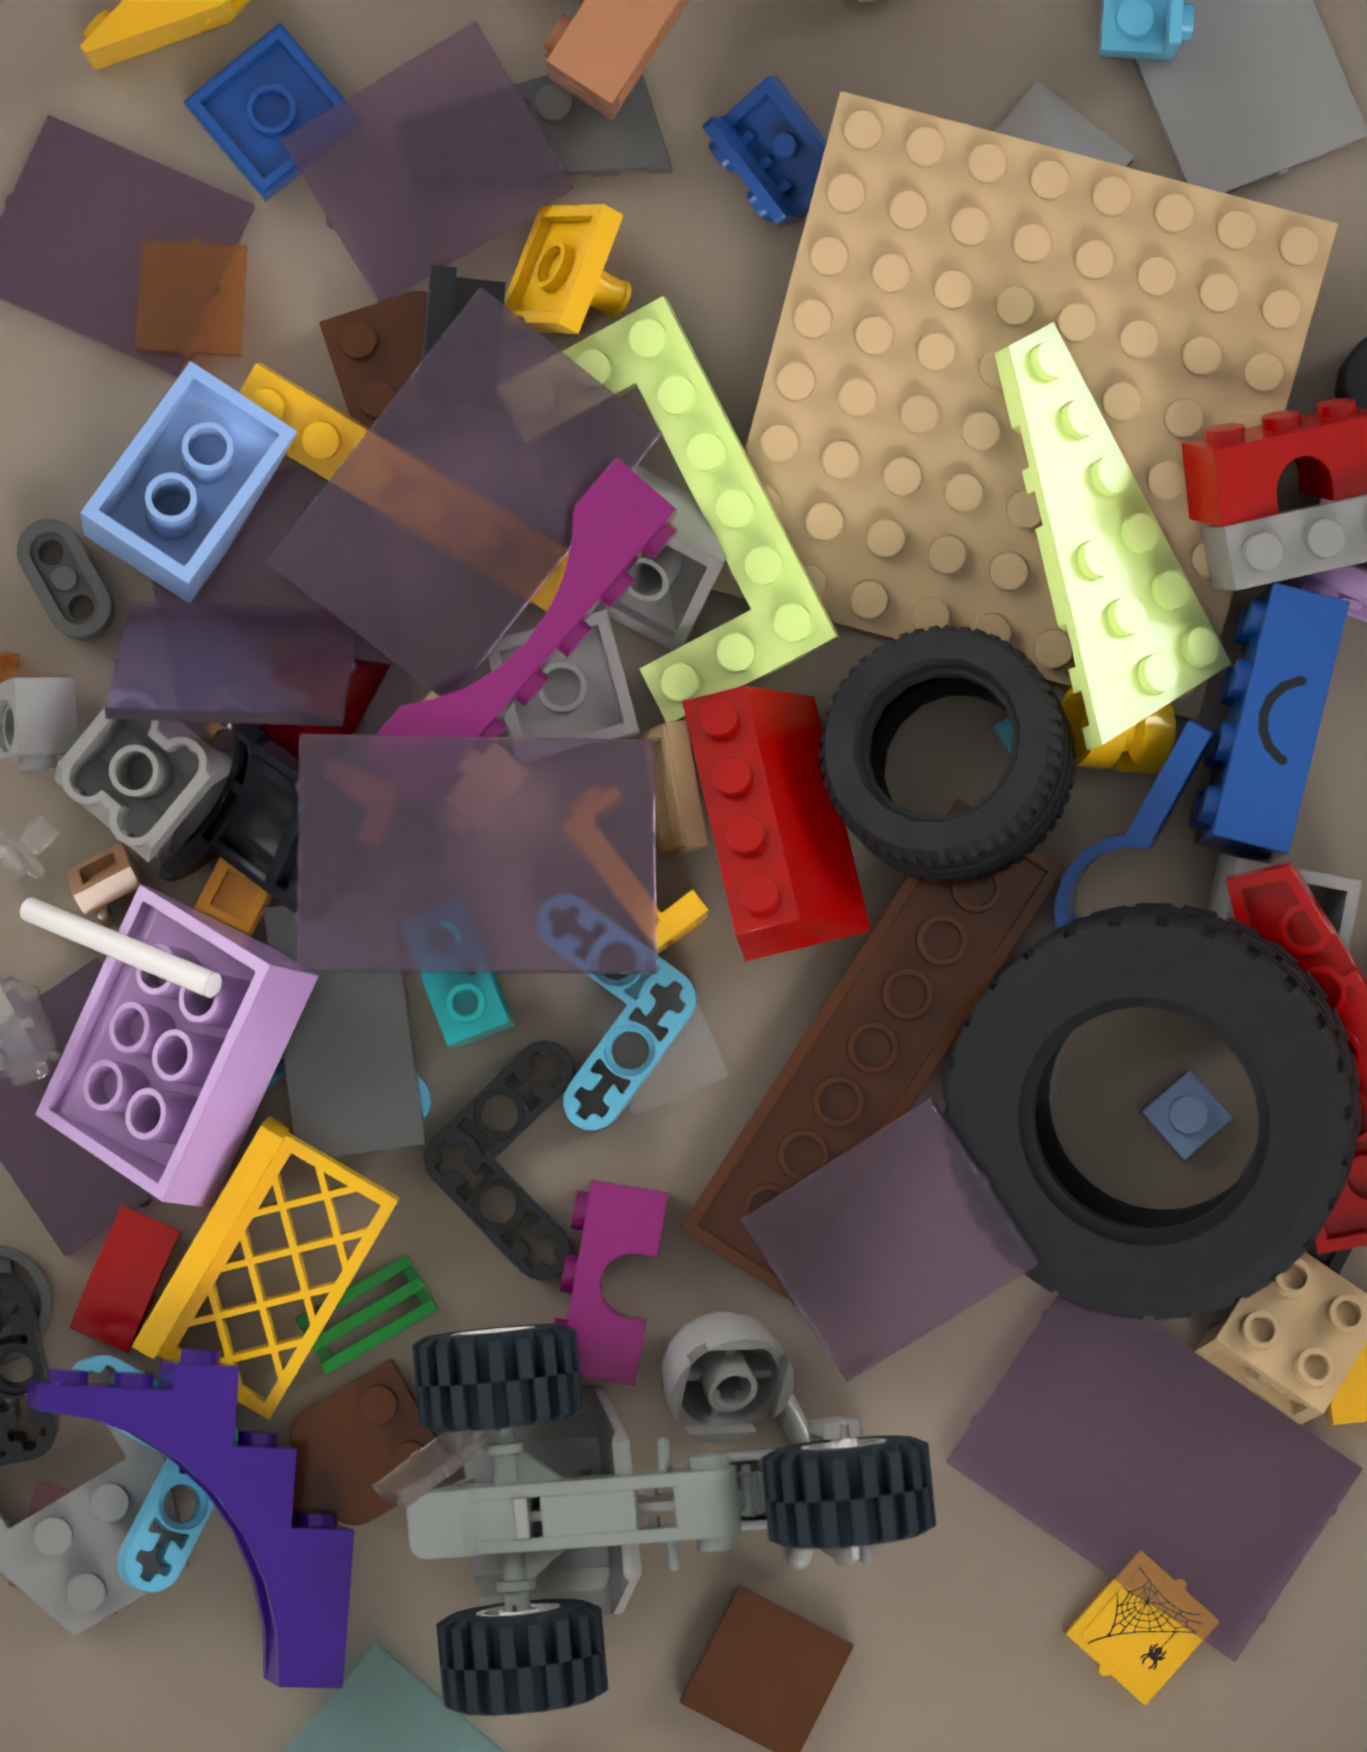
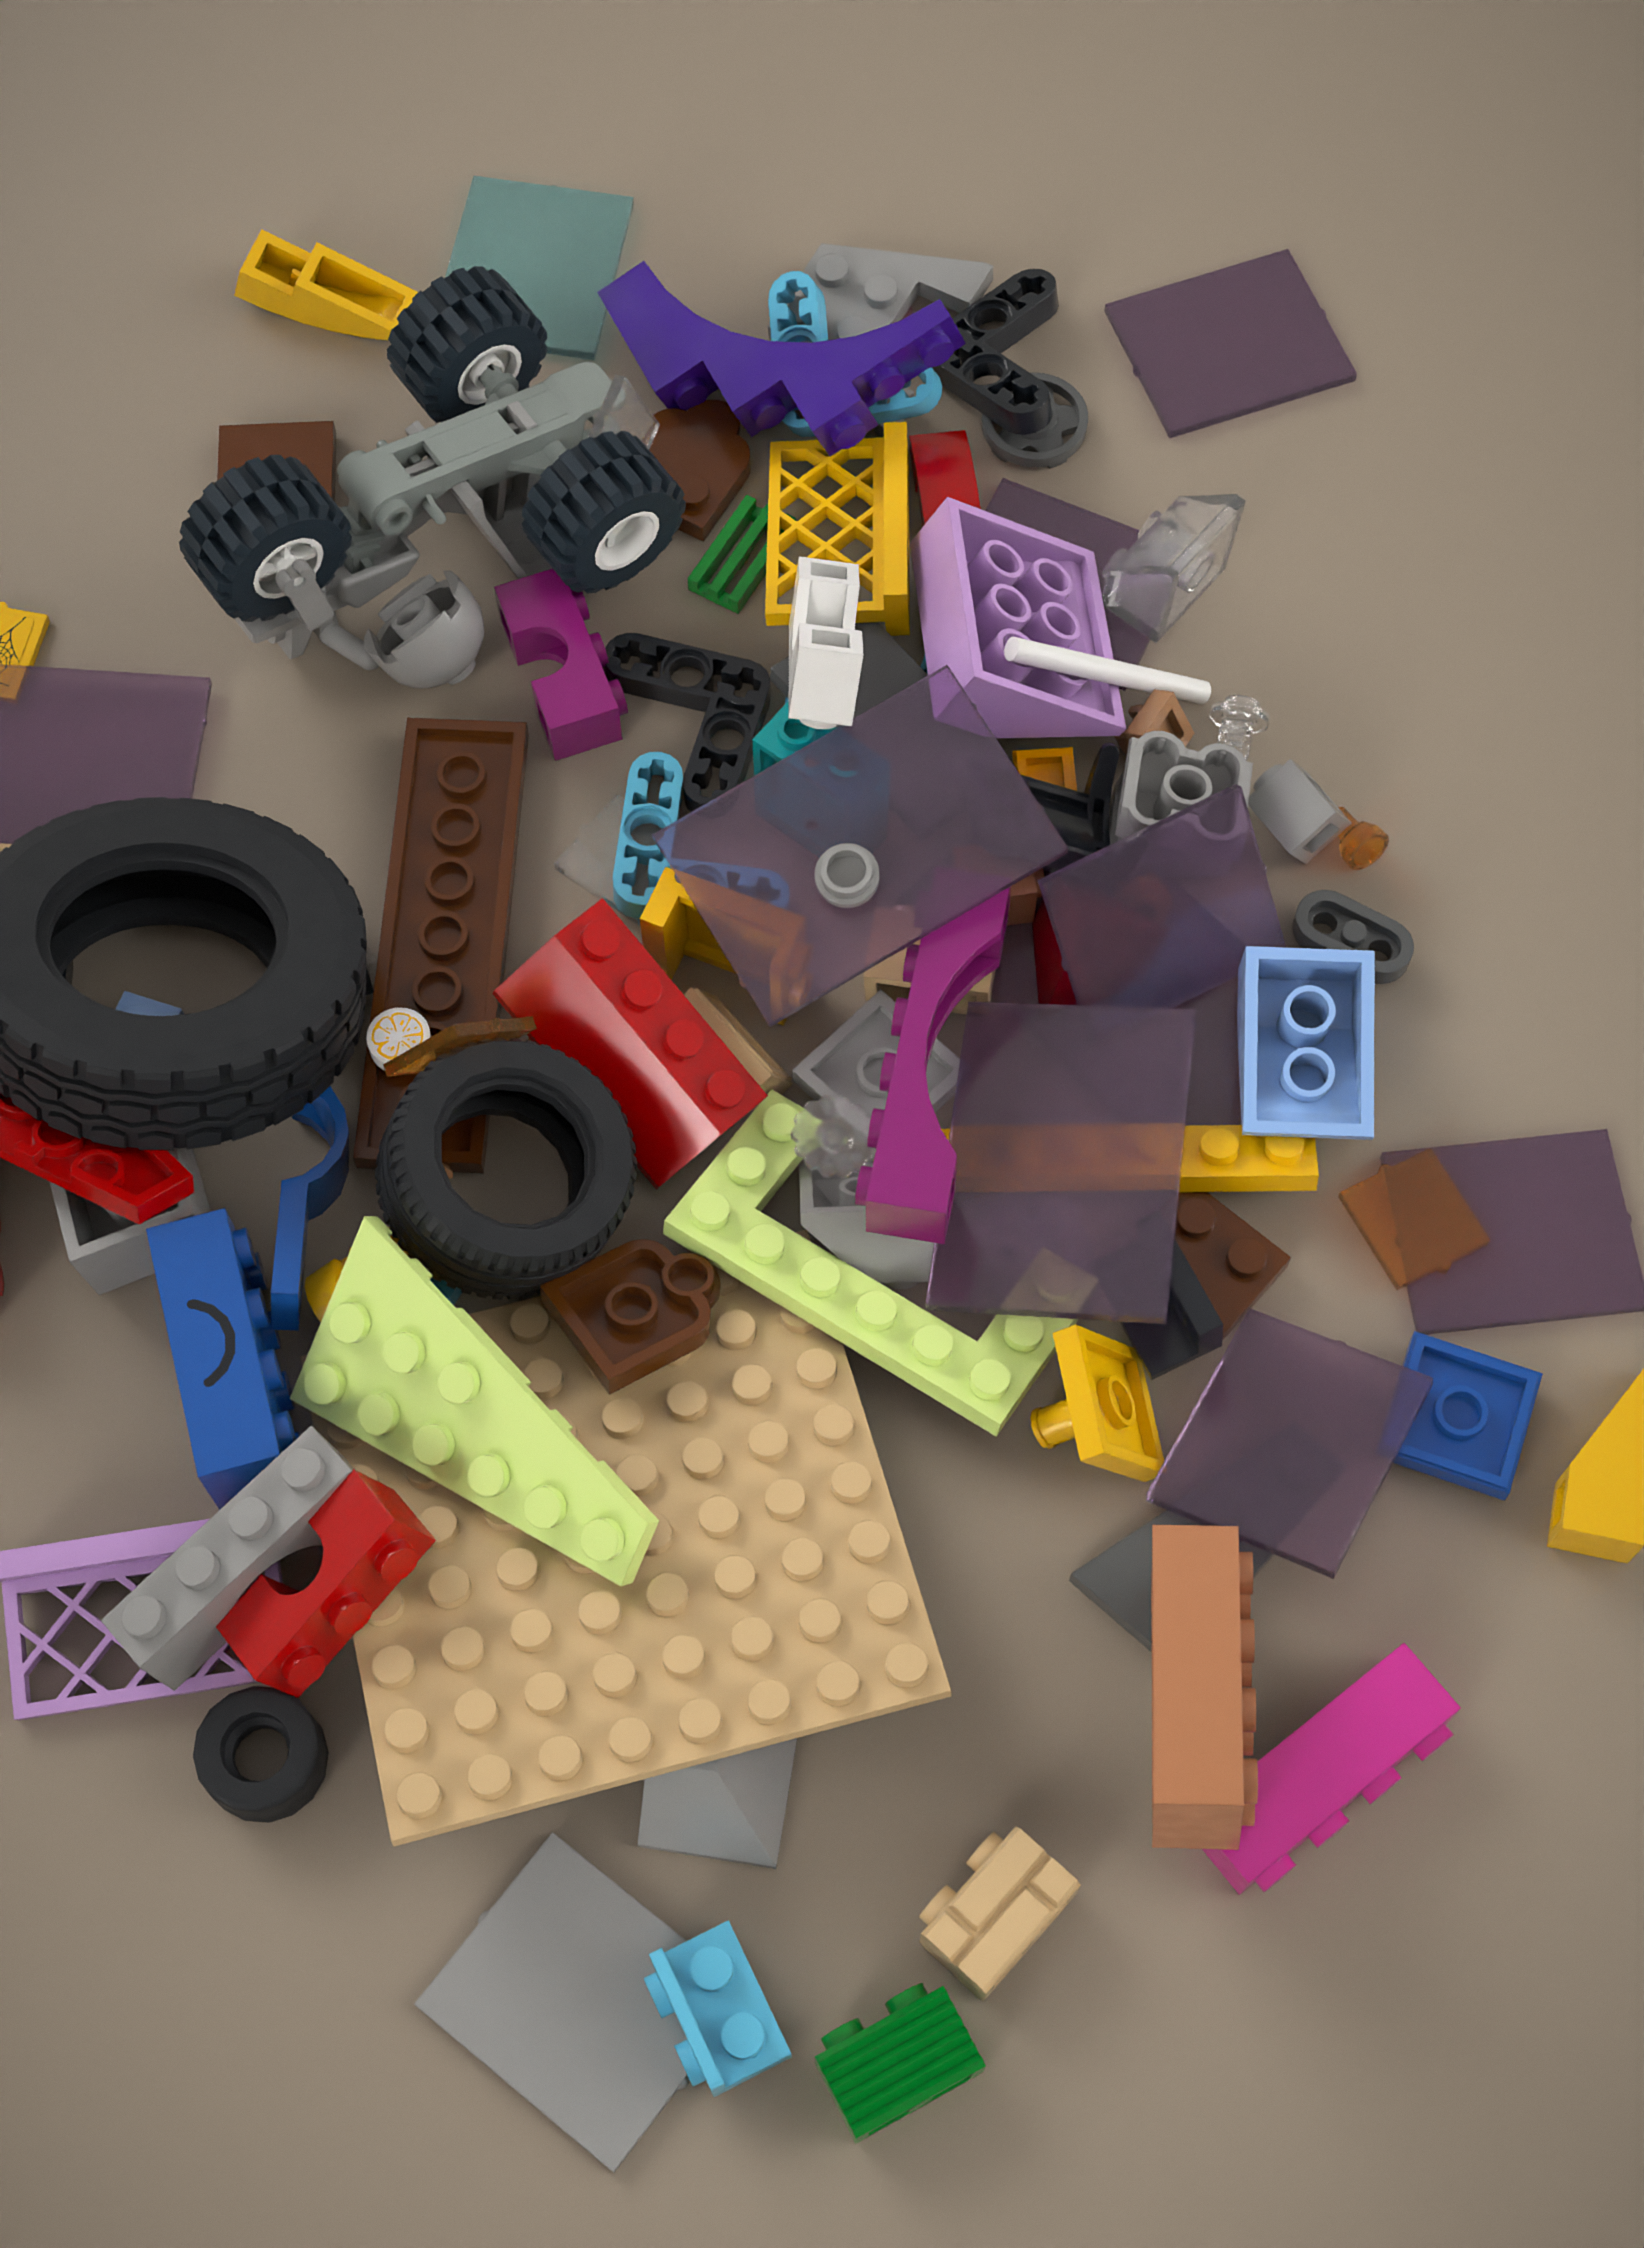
camera: 150 degrees right, 20 degrees down
(408, 1041) = (824, 644): none -> white arch
(511, 819) = (847, 875): none -> light grey plate
(642, 640) = (833, 1136): none -> clear piece
(771, 149) = (990, 1633): blue bracket -> none
(890, 1240) = (341, 780): clear purple piece -> none
(900, 574) = (634, 1309): none -> reddish brown plate
(931, 880) = (456, 1035): none -> clear orange piece
(969, 951) = (395, 1033): none -> white tile

